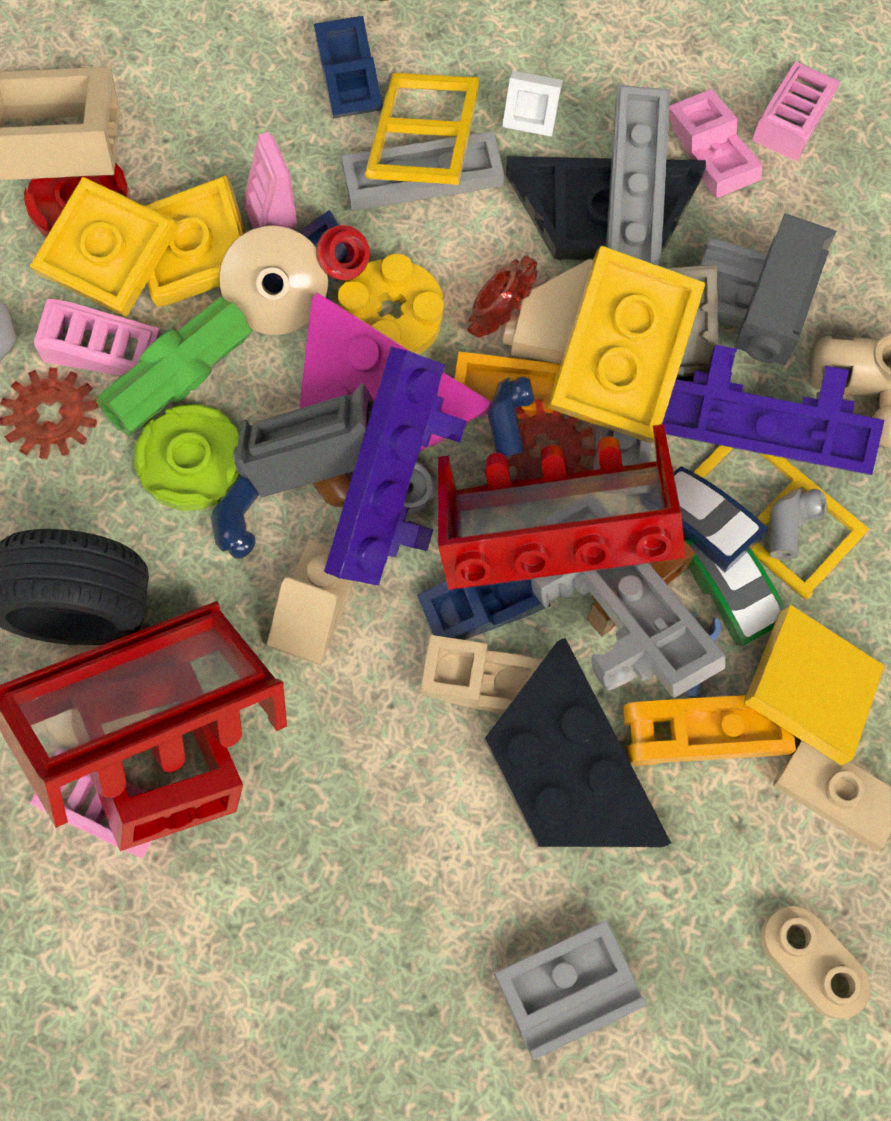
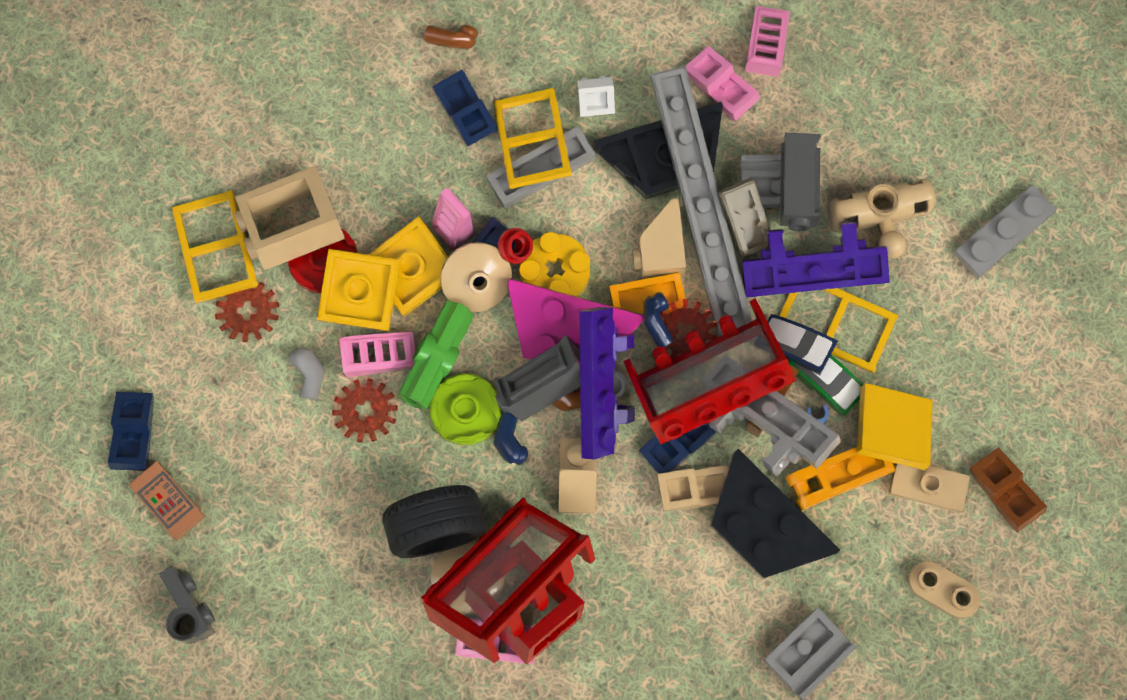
camera: 15 degrees left, 5 degrees up
(502, 296) = (627, 227): clear red gear -> none
(626, 344) = (715, 252): yellow plate -> none
(791, 514) = (847, 324): light grey arm -> none

